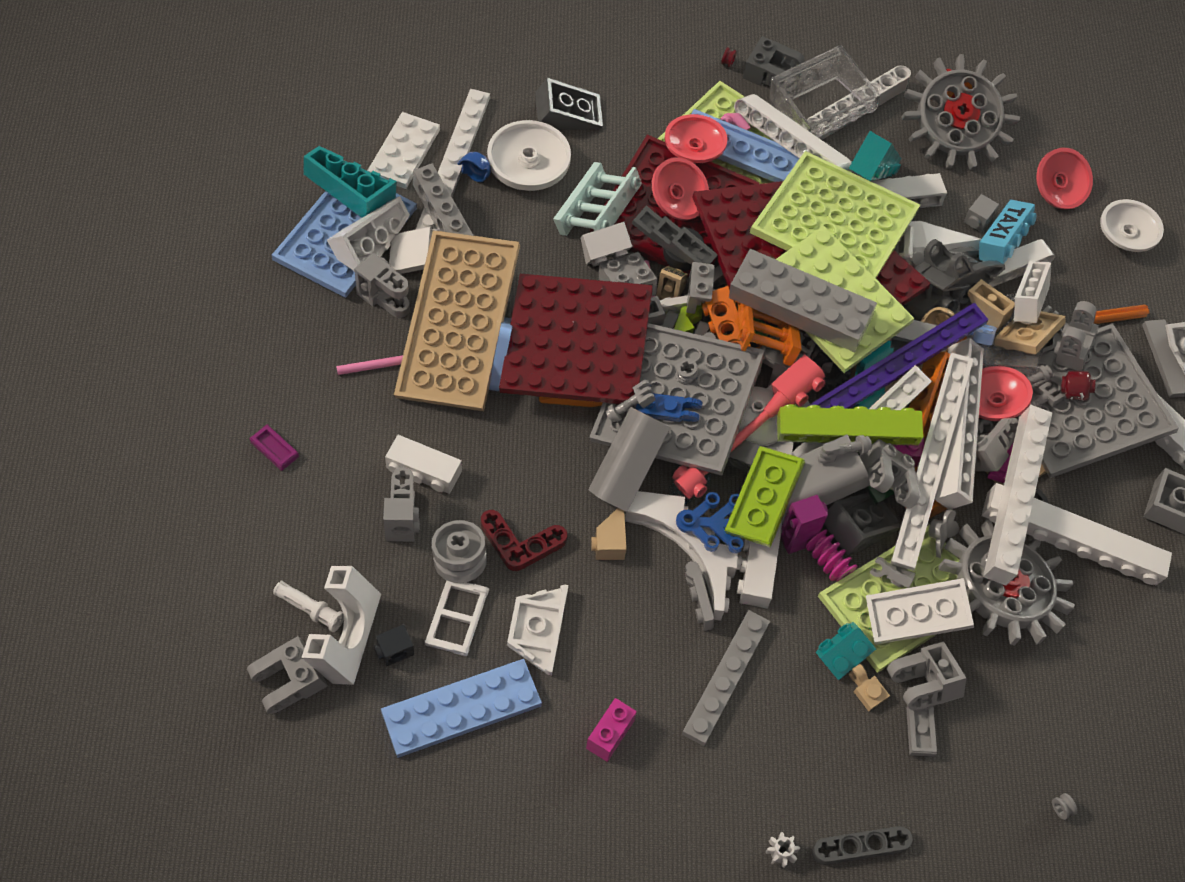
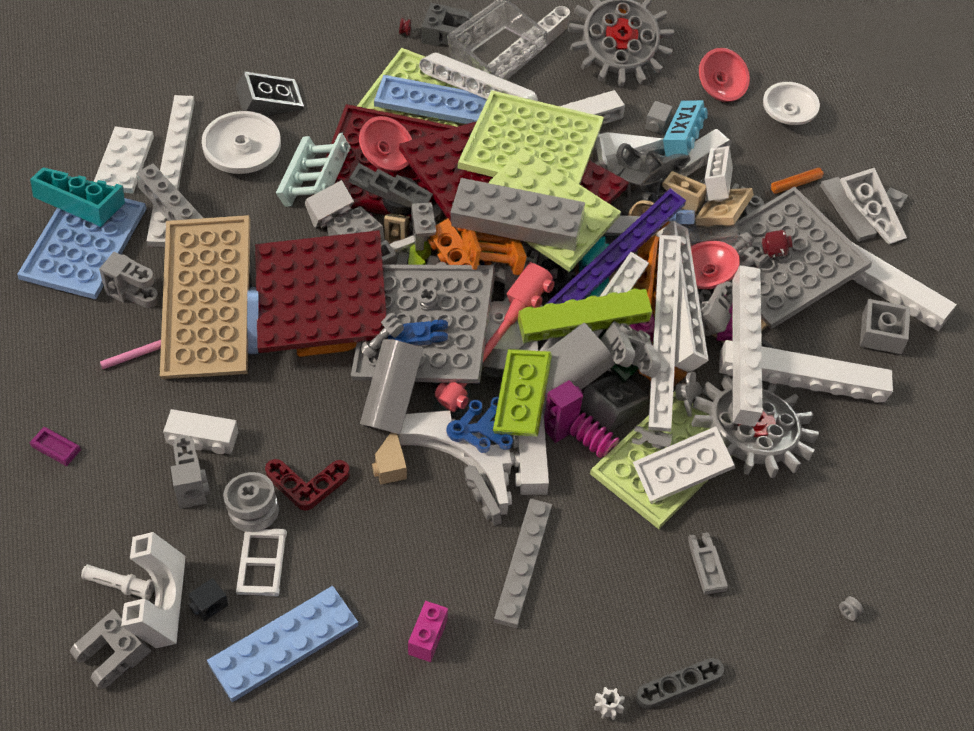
camera: 10 degrees left, 5 degrees down
(369, 234) = (106, 237): white wedge -> none
(410, 250) = (148, 244): white tile -> none
(476, 166) = (194, 160): blue hair -> none
(537, 626) = (339, 554): white wing -> none
(696, 138) = (391, 98): coral dish -> none
(736, 119) = (424, 77): bright pink arm -> none
(832, 449) = (573, 337): light grey hinge -> none
(845, 650) = (625, 514): teal bracket -> none
(869, 691) = (654, 546): tan plate -> none
(876, 158) = (556, 85): teal wedge -> none
(941, 671) = (711, 510): light grey brick -> none
(1077, 337) = (767, 202): light grey brick -> none

